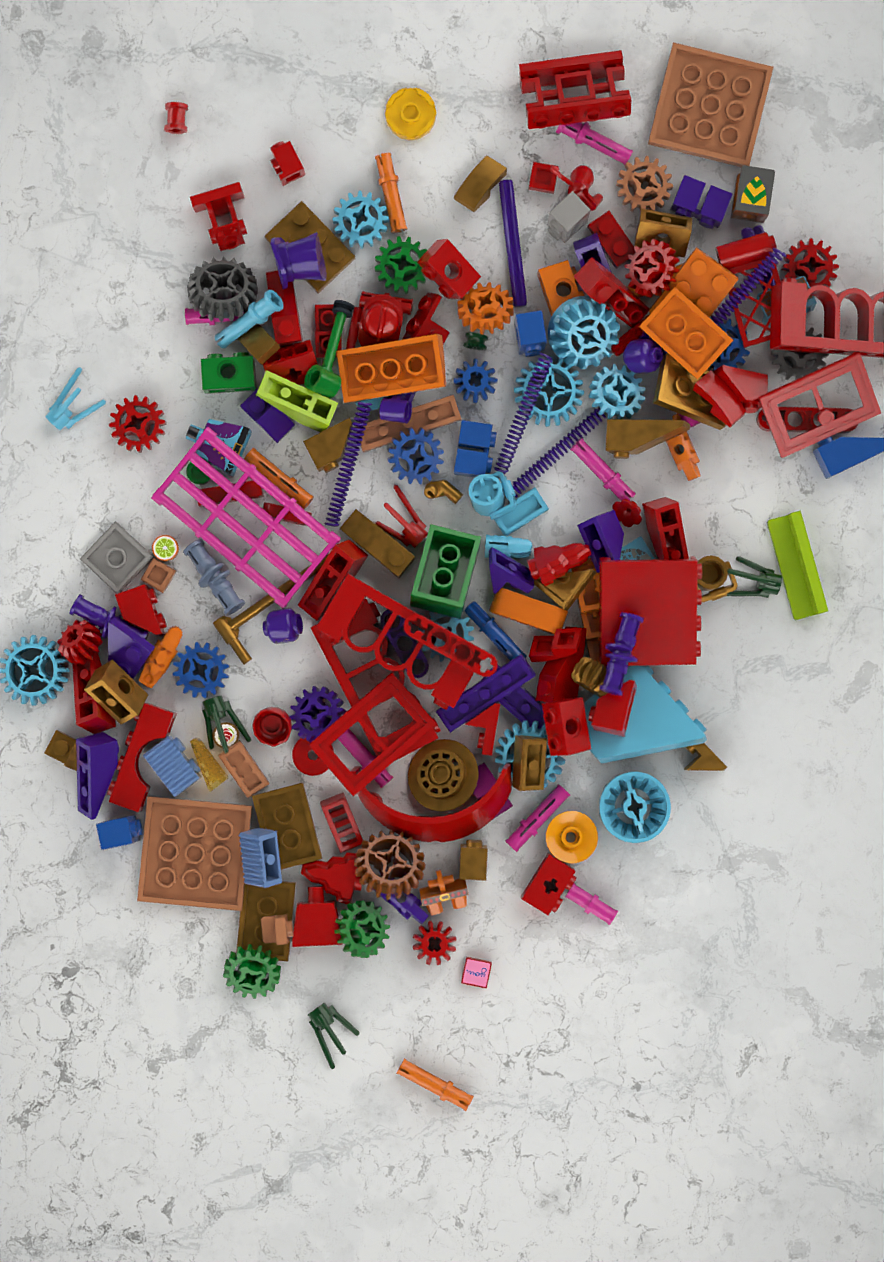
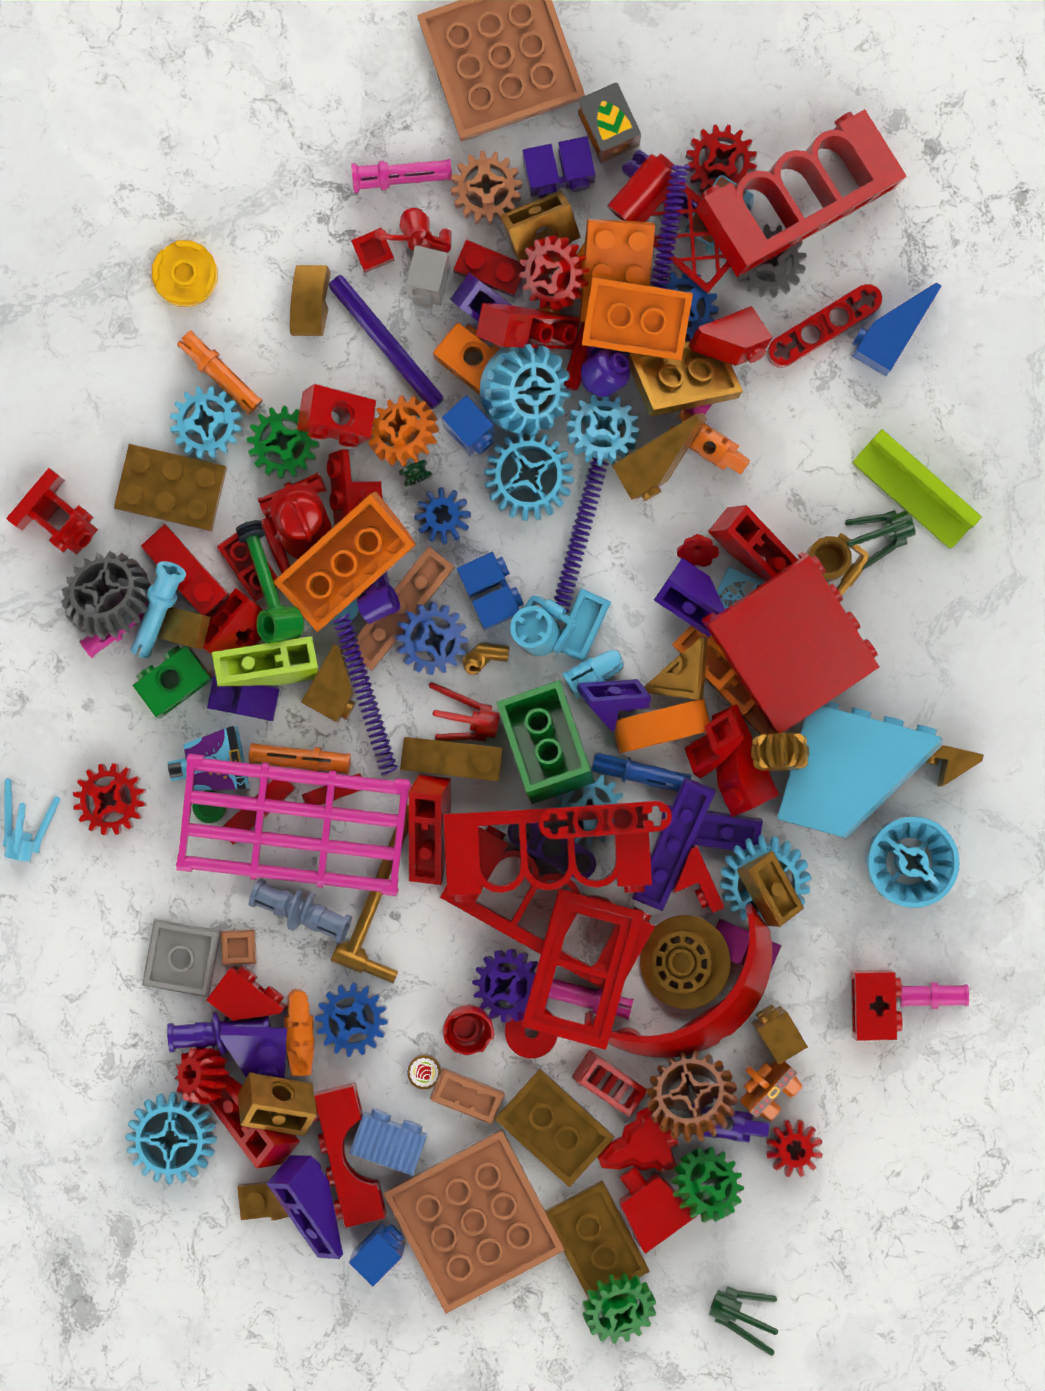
camera: 30 degrees left, 0 degrees up
(165, 548) = (227, 913): tile -> none
(210, 768) = (430, 1118): clear yellow slope -> none
(214, 711) = (394, 1054): dark green plant -> none
(260, 857) = (548, 1180): medium blue brick -> none
(276, 929) = (616, 1245): nougat bracket -> none
(283, 626) = (408, 914): dark purple head -> none
(286, 162) = (85, 413): red brick -> none
(299, 259) = (168, 509): dark purple hat -> none
(435, 1085) = (895, 1299): orange pin -> none
(476, 972) = (859, 1149): bright pink tile -> none
(524, 414) = (514, 519): dark purple piece -> none
(555, 561) = (656, 653): red rock -> none
(559, 794) = (808, 981): dark pink pin -> none
(566, 726) = (785, 825): red brick -> none
(572, 73) = (330, 118): red fence -> none
(585, 837) = (883, 938): light orange dish -> none
(602, 470) = (657, 527): dark pink pin -> none
(614, 711) = (824, 773): red slope -> none
(621, 653) = (794, 709): dark purple piece -> none
(725, 402) = (726, 365): red slope -> none
(825, 417) = (853, 317): door -> none

